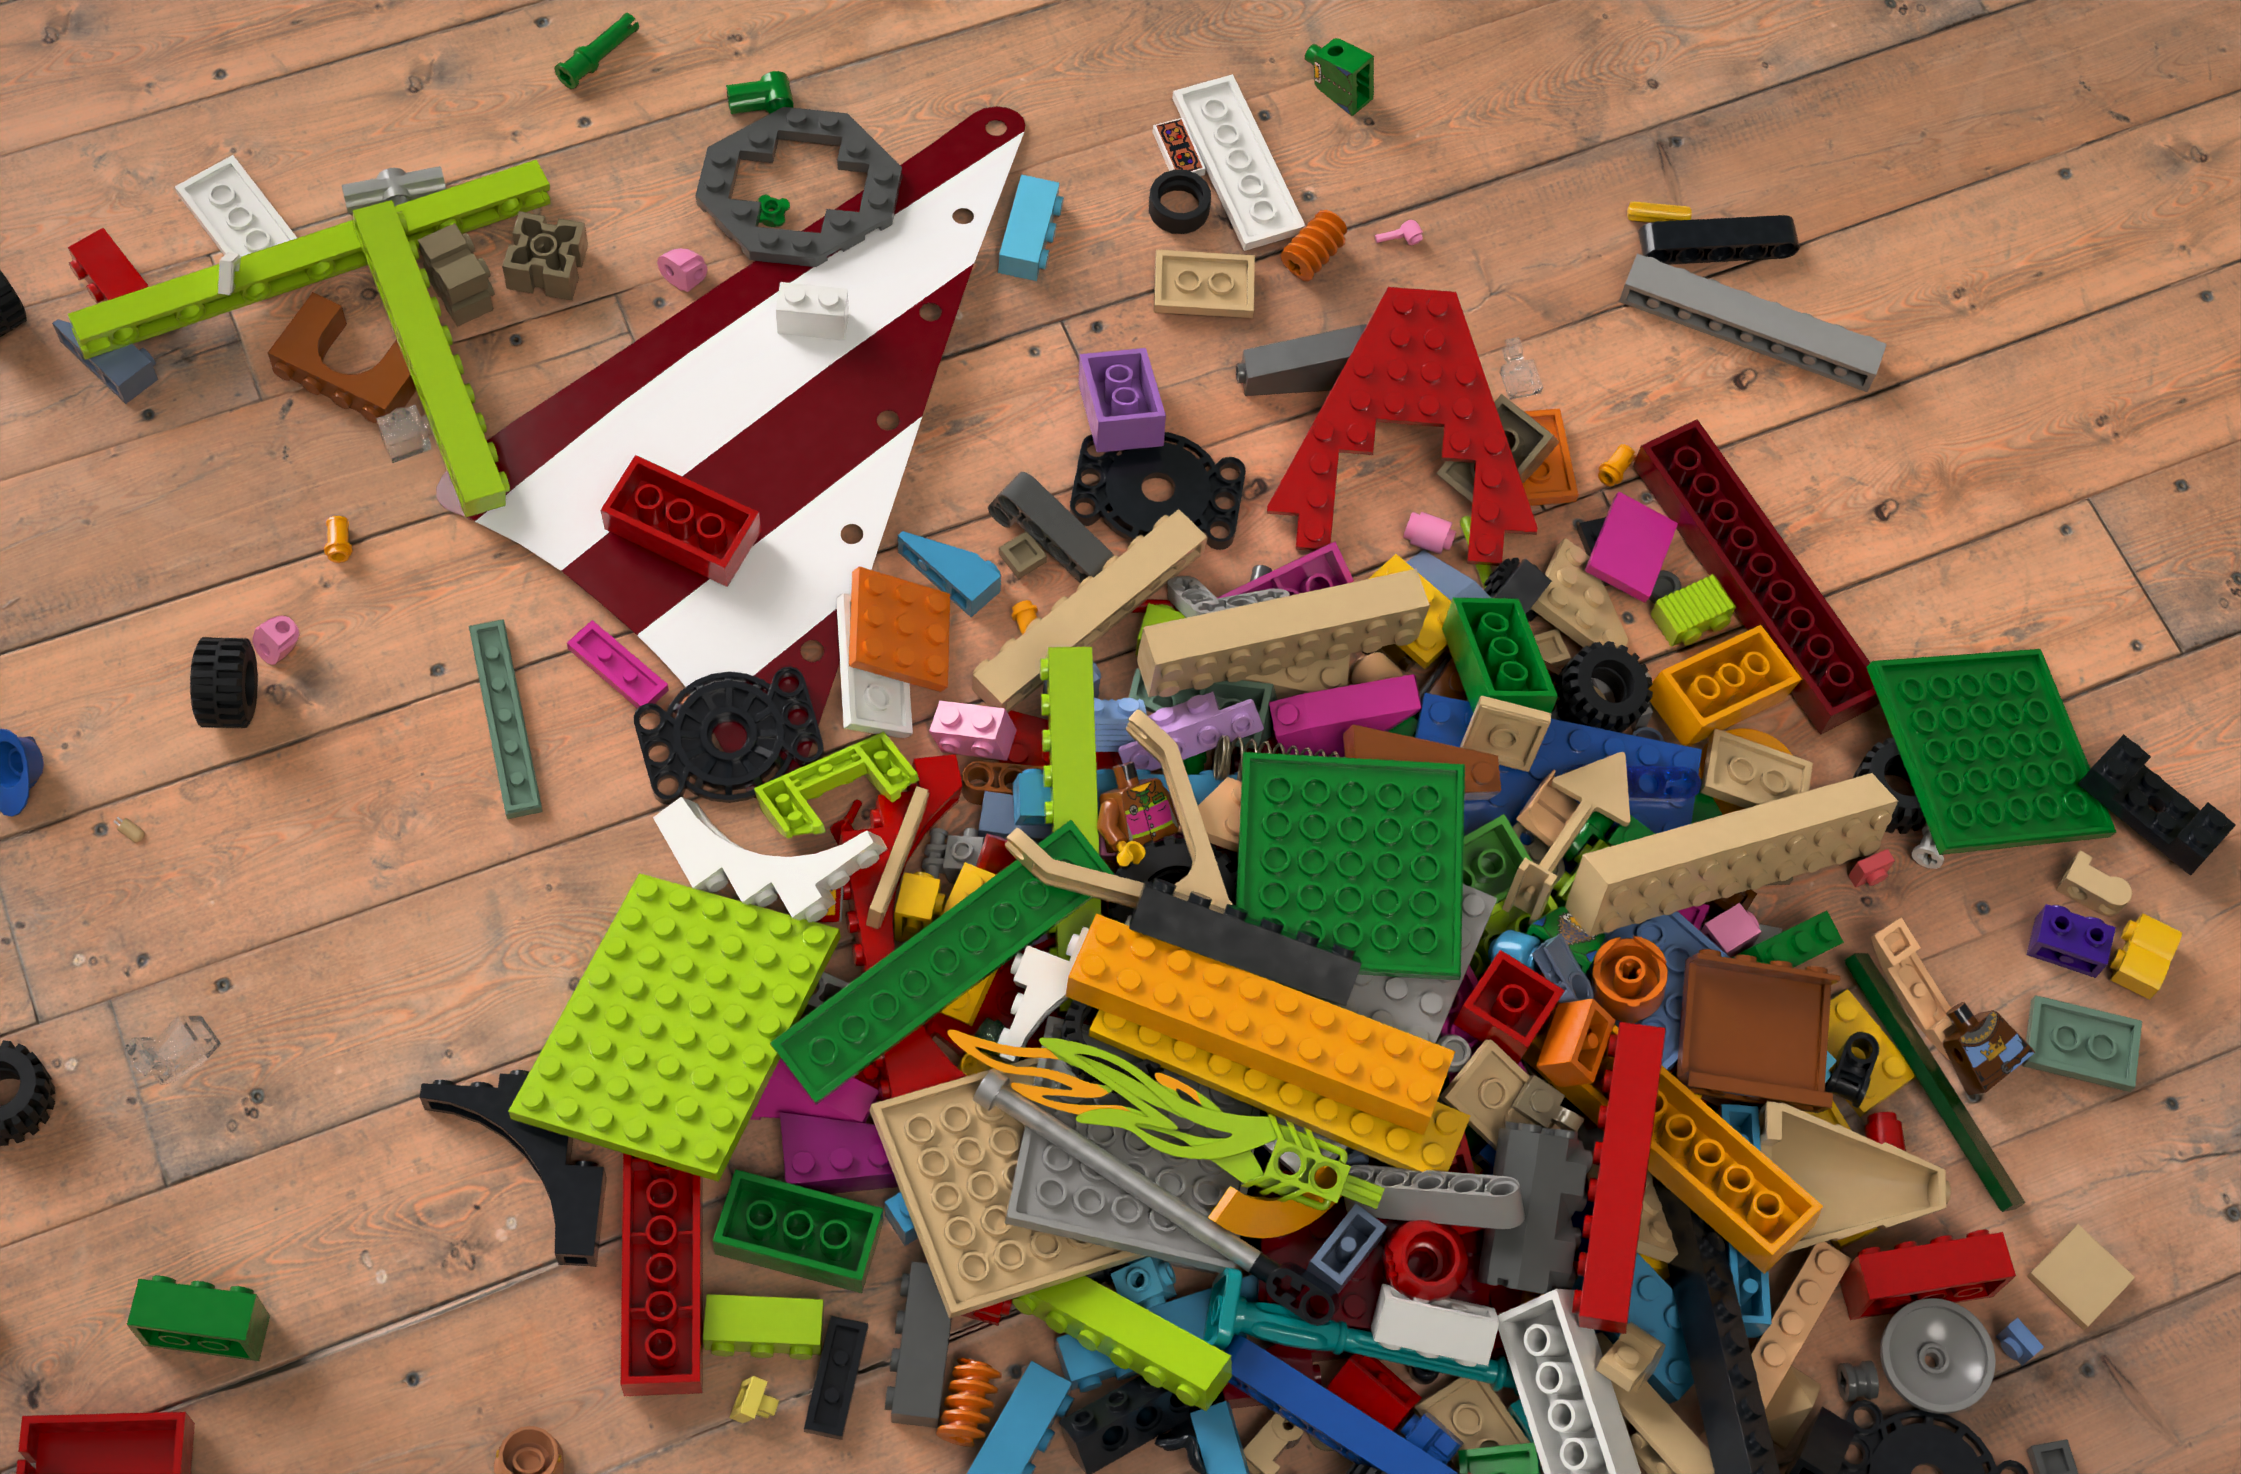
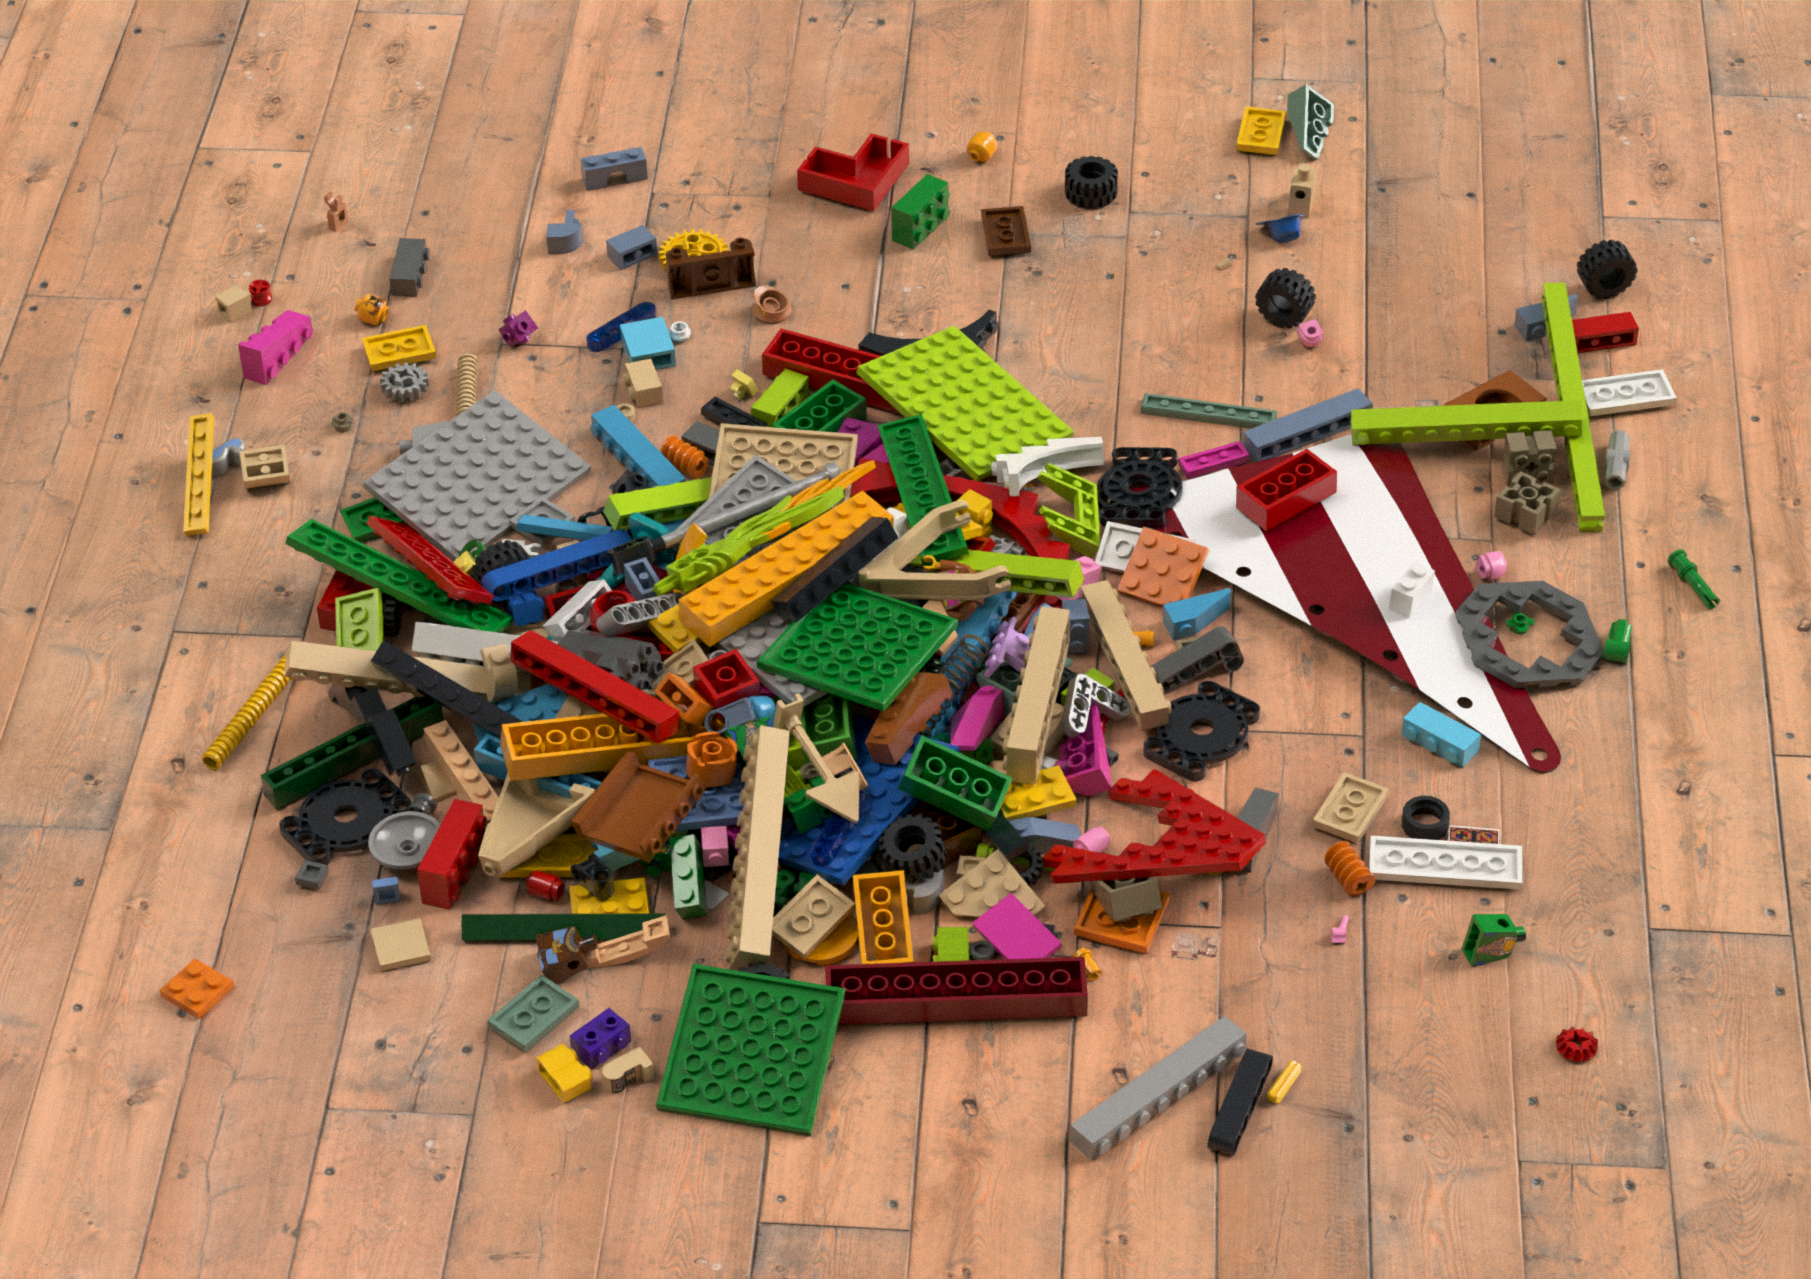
camera: 125 degrees right, 20 degrees down
(176, 1179) = (1005, 231): none -> reddish brown plate
(227, 266) = (1564, 346): white tile -> none
(338, 546) = (1366, 376): light orange pin -> none
(490, 573) = (1304, 426): none -> sand blue brick
(897, 858) = (1005, 503): tan tile -> none
(1121, 400) = (1271, 718): medium lavender brick -> none
(1507, 731) = (899, 755): tan tile -> none
(1872, 869) = (715, 958): coral plate -> none
(2129, 787) = (683, 1118): black piece -> none

